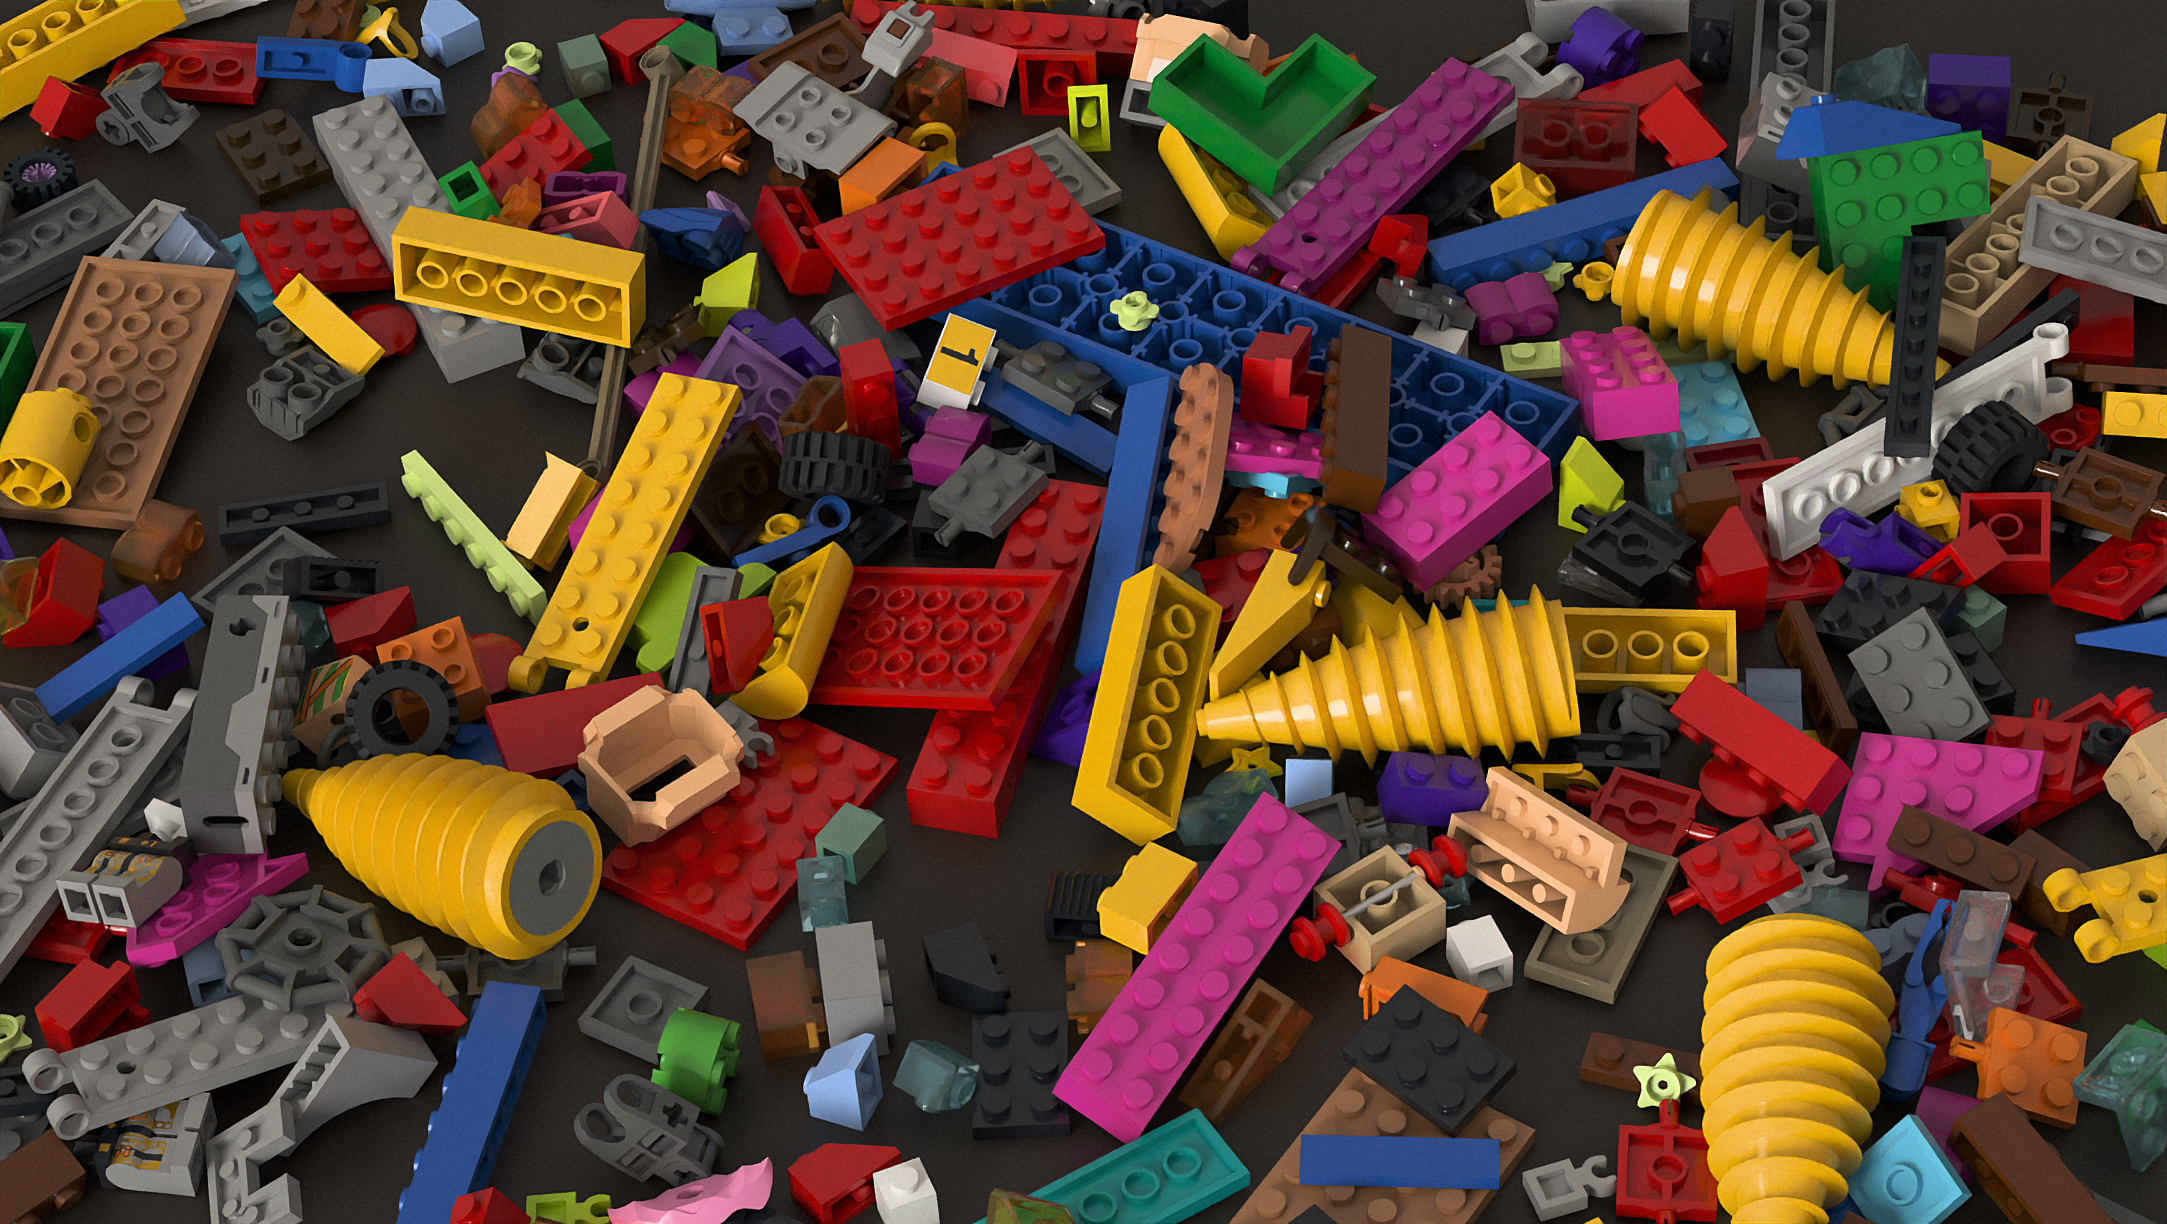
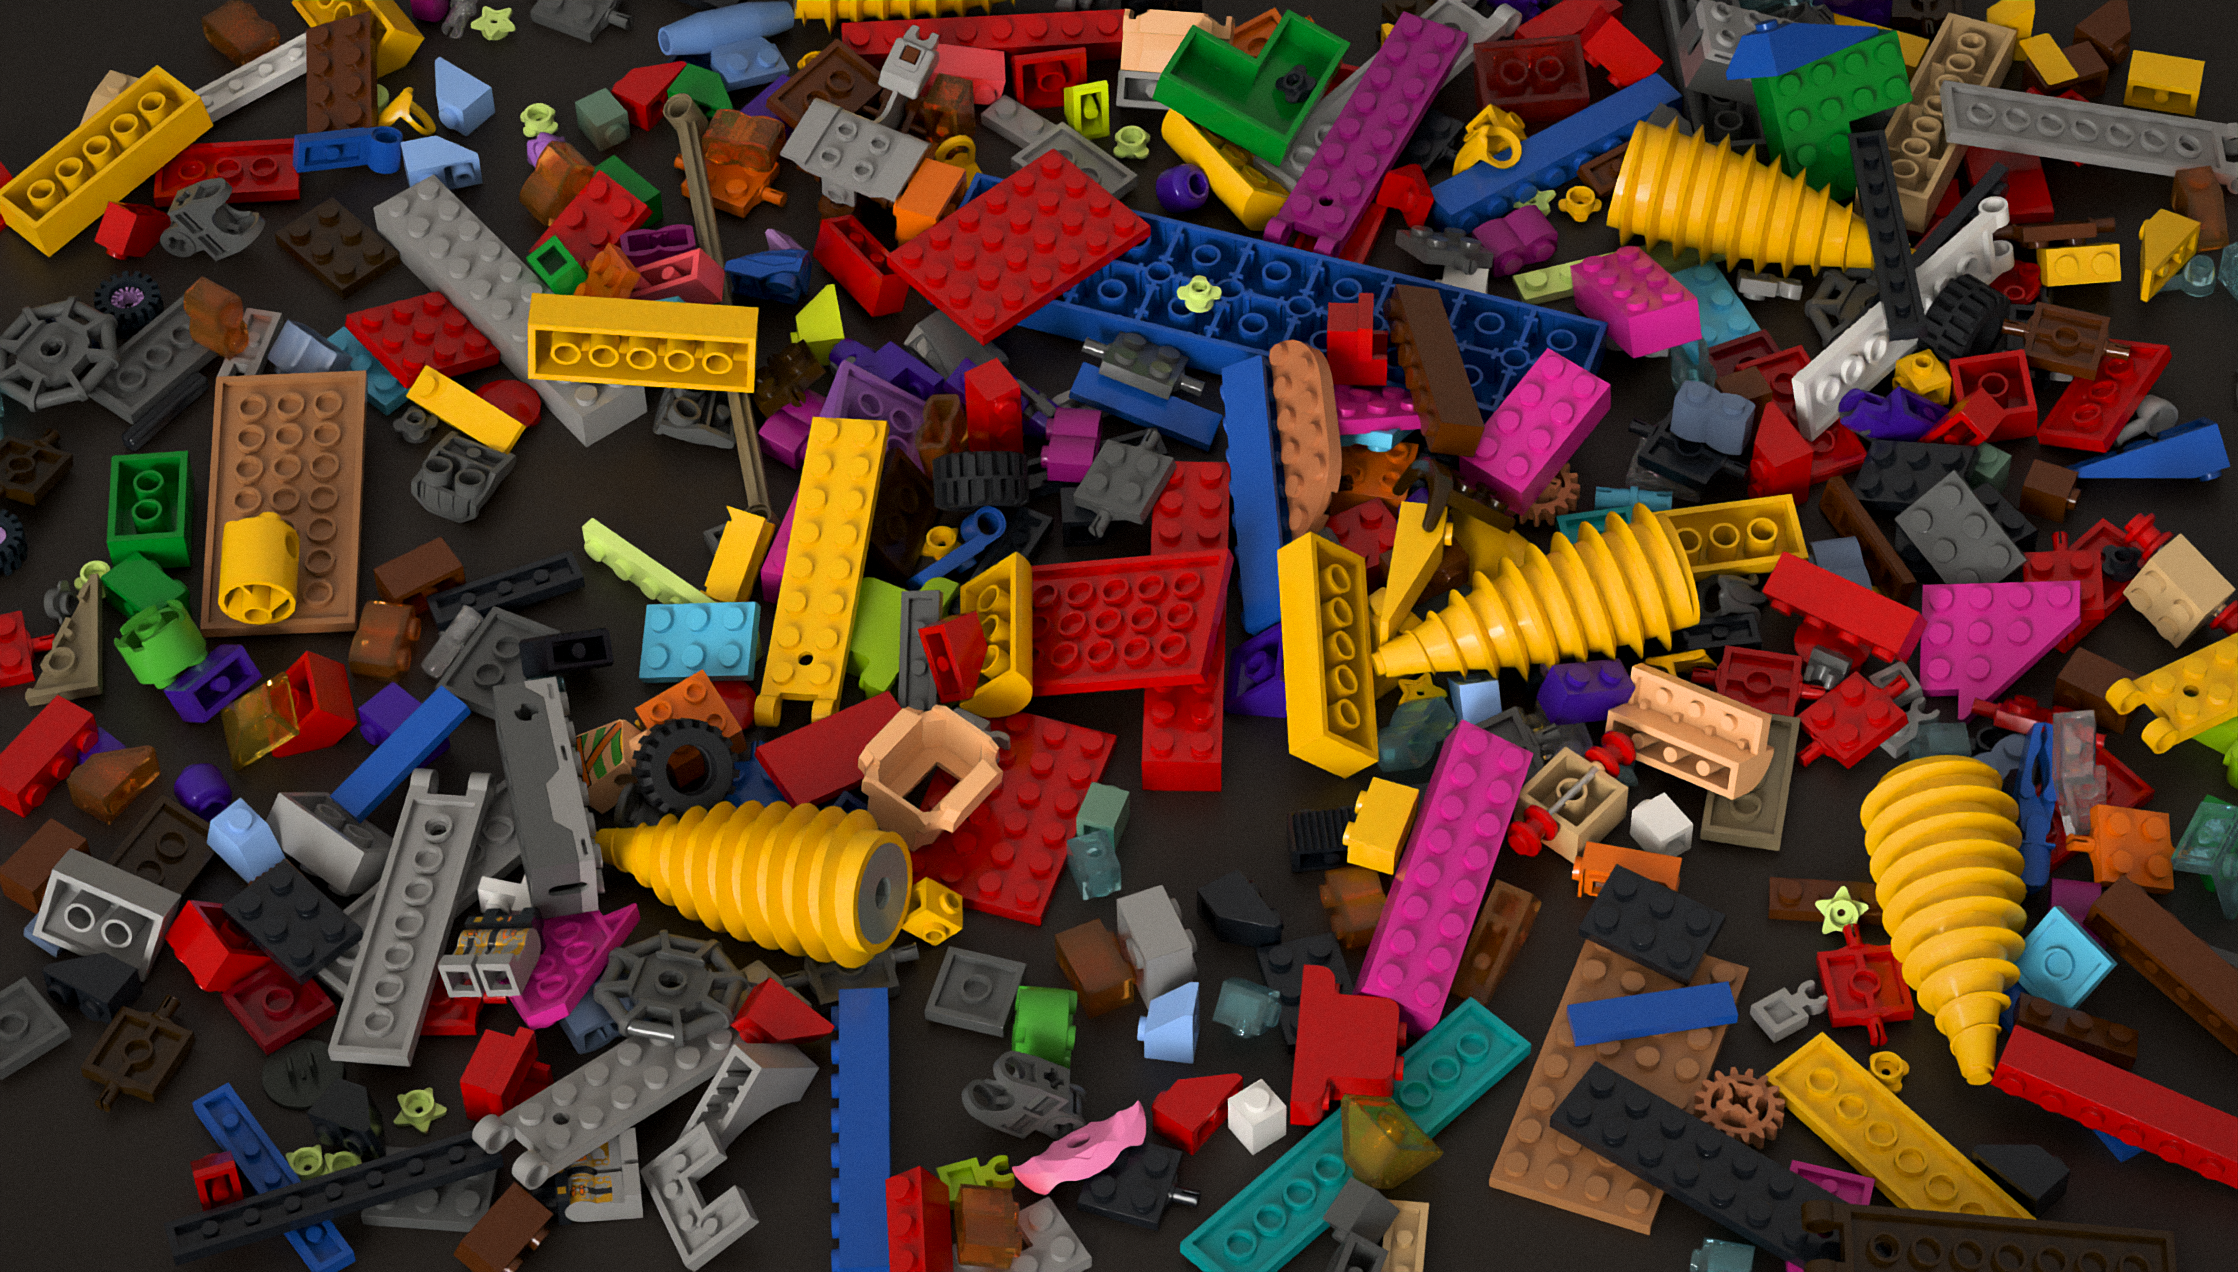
camera: 15 degrees left, 5 degrees up
(106, 199) = (216, 318): none -> clear orange brick
(219, 481) = (419, 574): none -> reddish brown brick
(226, 553) = (451, 641): none -> clear axle
(370, 622) = (606, 689): red slope -> none
(486, 588) = (699, 637): none -> medium azure plate
(623, 914) = (933, 912): none -> yellow brick
(957, 364) = (1062, 368): brick -> none
(1011, 121) = (1015, 121): none -> light grey plate
(1022, 1137) = (1342, 1046): none -> red brick
(1129, 158) = (1131, 143): none -> yellowish green plate
(1163, 208) = (1182, 188): none -> dark purple head
(1307, 112) = (1299, 92): none -> black plate
(1489, 206) = (1476, 149): none -> yellow piece
(1569, 595) = (1613, 498): none -> medium azure pin
(1587, 481) = (1634, 397): neon yellow slope -> none
(1664, 514) = (1712, 417): none -> sand blue brick
(1725, 807) = (1826, 668): none -> dark grey tile
(1782, 392) = (1767, 285): none -> light grey plate
(1961, 853) = (2032, 678): reddish brown plate -> none
(2046, 655) = (2049, 491): none -> reddish brown brick

